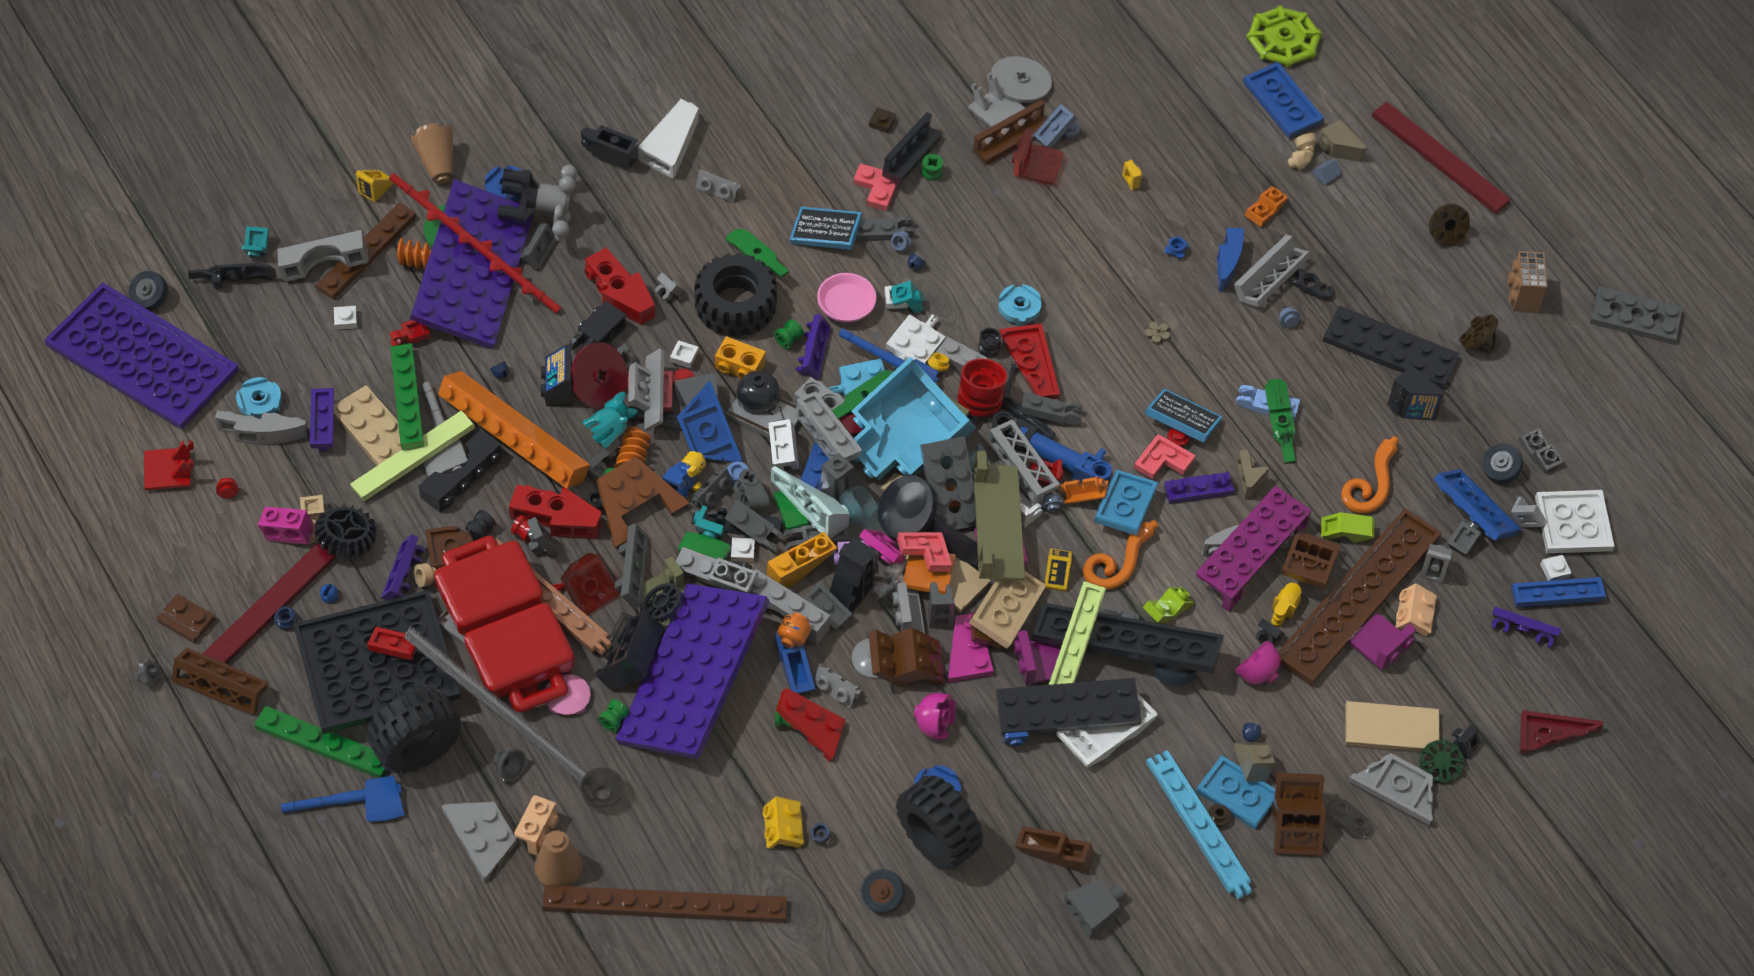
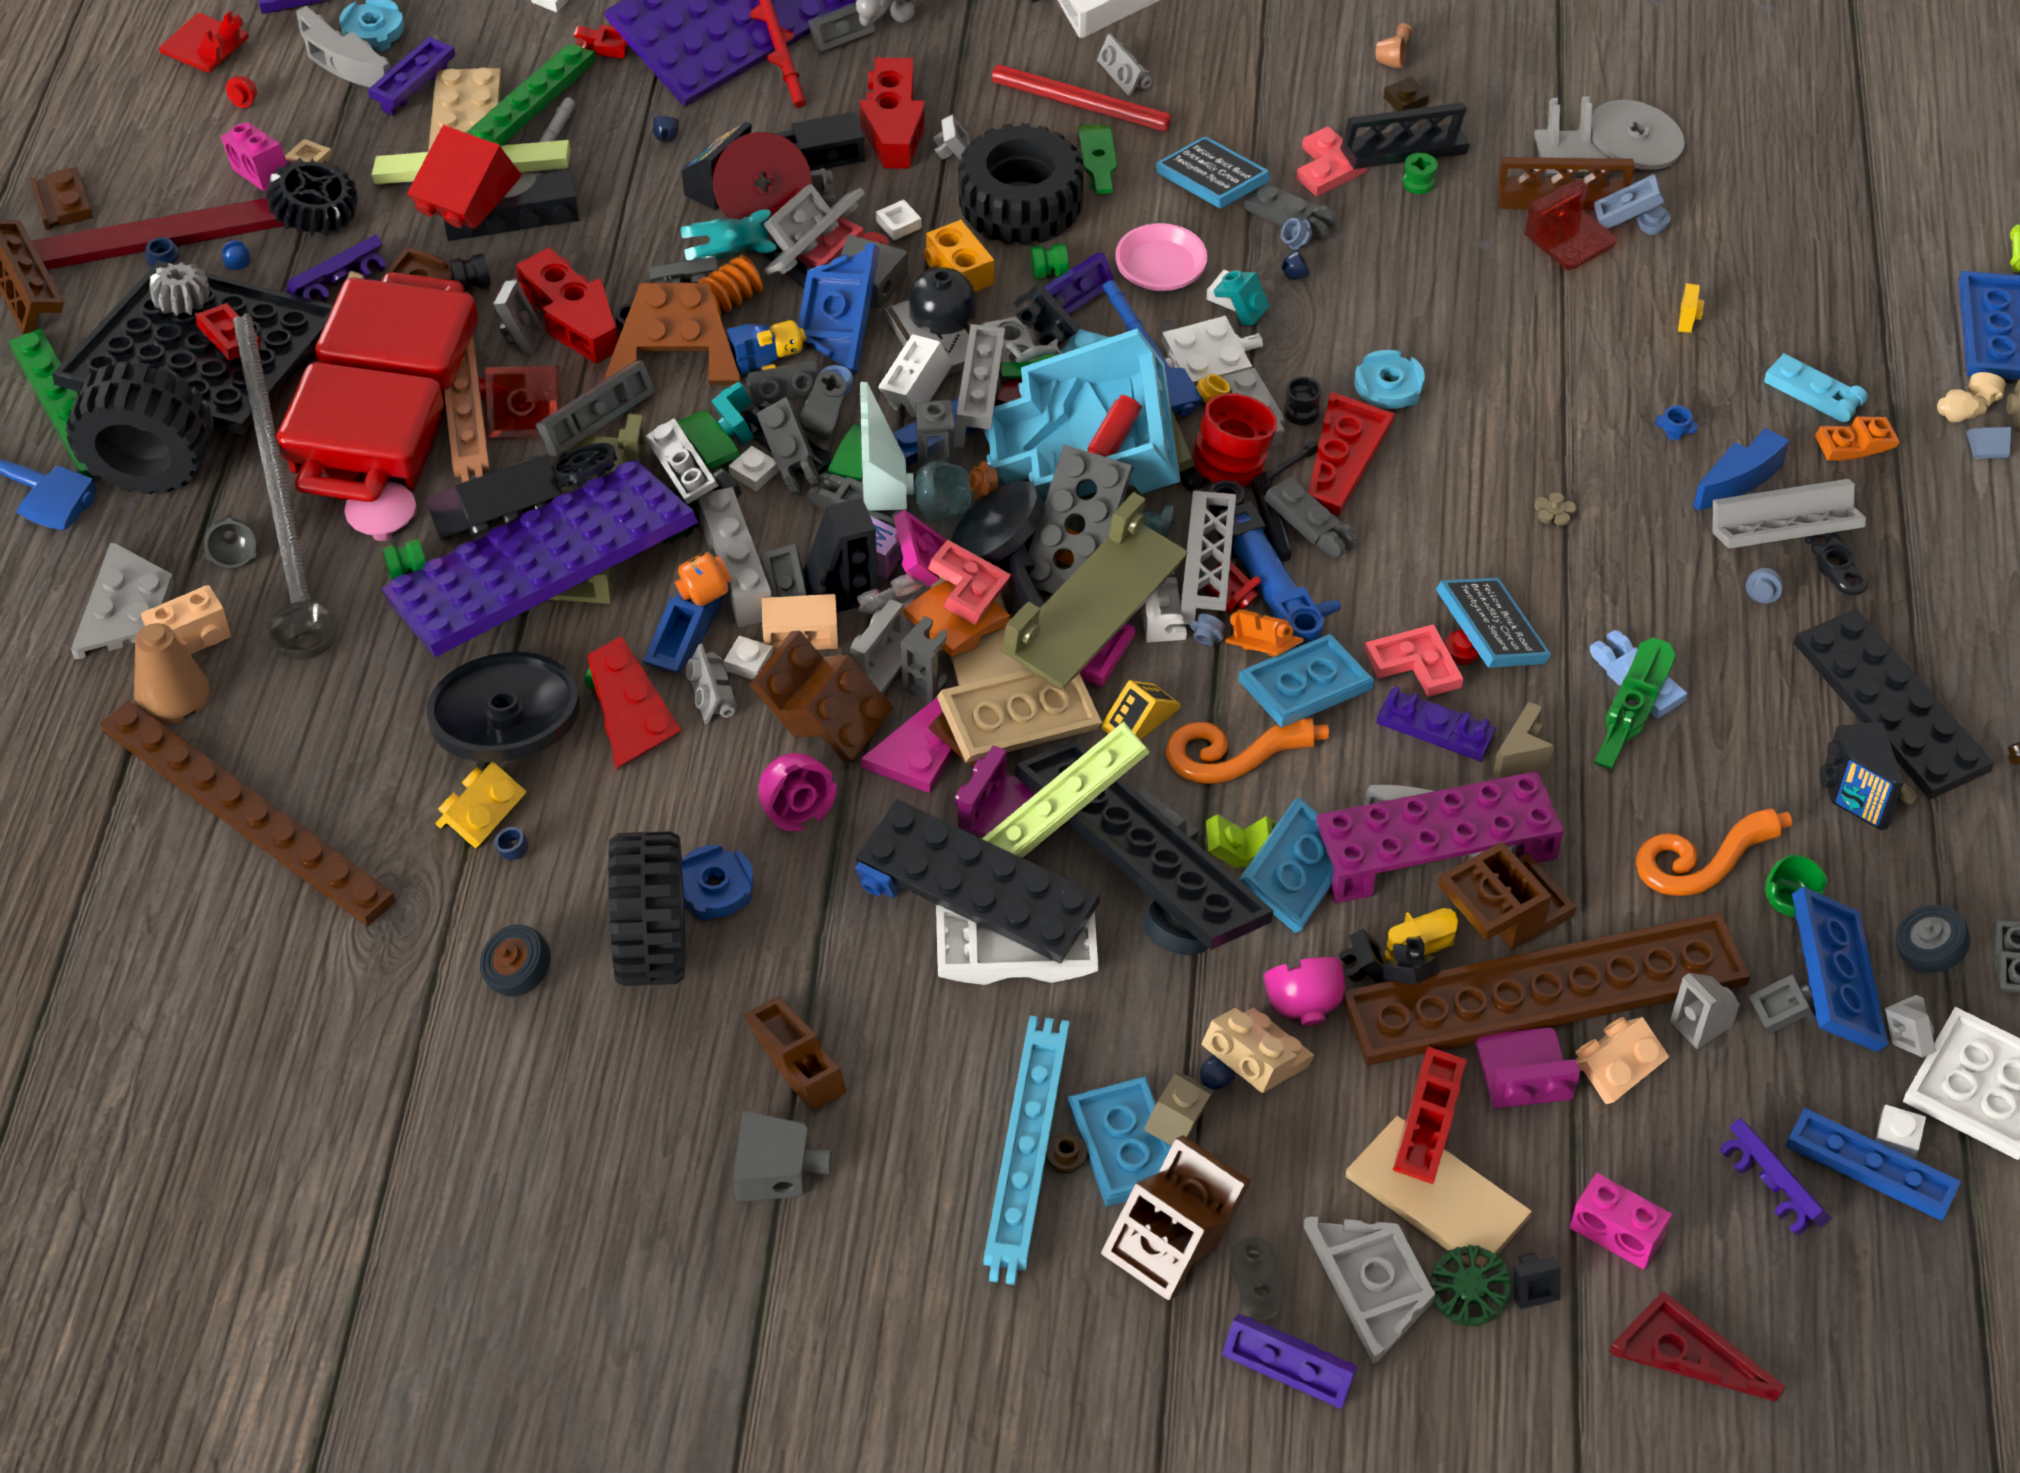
camera: 40 degrees right, 5 degrees down
(336, 634) = (179, 288): none -> light grey gear
(437, 473) = (462, 178): none -> red slope
(514, 429) = (607, 191): orange brick -> none
(711, 219) = (1081, 98): none -> red axle
(751, 763) = (503, 707): none -> black dish
(799, 561) = (790, 514): light orange slope -> none
(824, 369) = (1046, 315): none -> black hips
(840, 659) = (747, 657): none -> white plate
(842, 389) = (1035, 351): none -> light grey piece
(852, 623) = (810, 614): none -> light nougat hinge
(853, 95) = (1393, 49): none -> nougat bar
(875, 486) = (982, 480): none -> dark orange plate
(925, 419) = (1115, 427): none -> red piece
(1201, 604) = (1291, 867): none -> dark azure tile
(1225, 187) = (1815, 388): none -> medium azure plate
(1263, 708) = (1256, 1048): none -> tan plate
(1296, 622) = (1410, 963): none -> black tile
(1353, 526) = (1615, 891): lime slope -> none
(1362, 692) = (1429, 1115): none -> red slope
(1397, 847) = (1290, 1360): none -> dark purple plate
(1423, 473) = (1789, 876): none -> green hair
(1480, 689) = (1620, 1221): none -> dark pink brick

